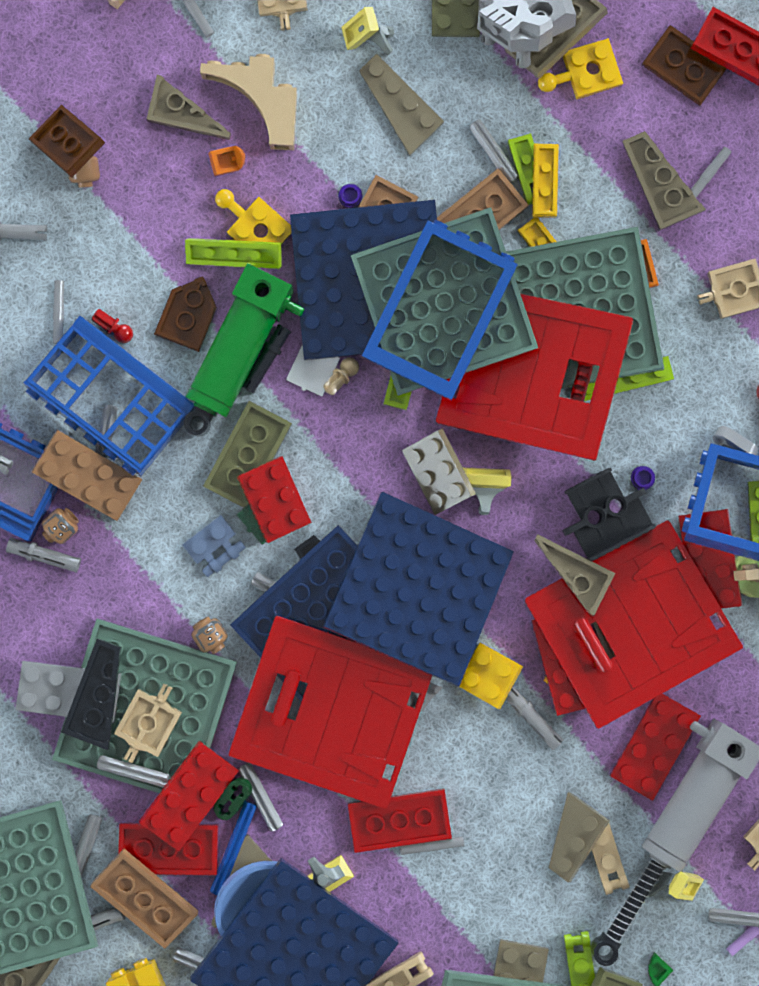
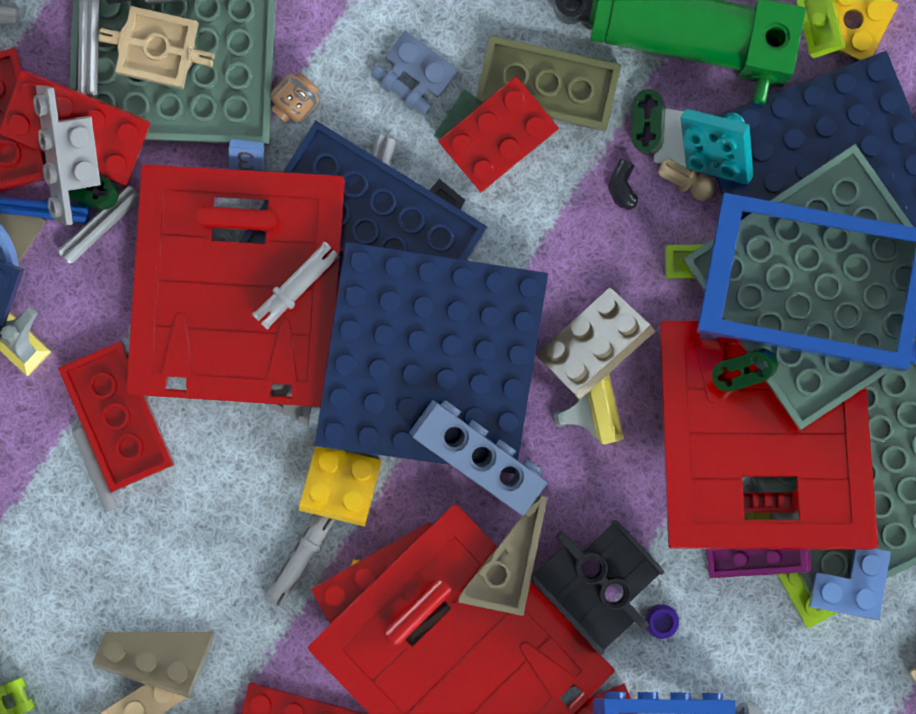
camera: 80 degrees right, 0 degrees up
(207, 805) = (68, 153): none -> light grey bracket
(241, 680) = (246, 155): none -> medium blue tile
(266, 358) = (683, 73): black pin -> none
(292, 398) = (640, 121): none -> dark green beam
(325, 349) = (721, 140): none -> teal plate
(335, 424) = (620, 188): none -> black arm
(343, 669) = (295, 285): none -> light grey pin
(492, 374) = (742, 363): none -> dark green beam
(528, 553) = (516, 493): none -> sand blue brick
(620, 401) = (756, 562): none -> magenta tile
(660, 339) = (860, 593): none -> medium blue plate

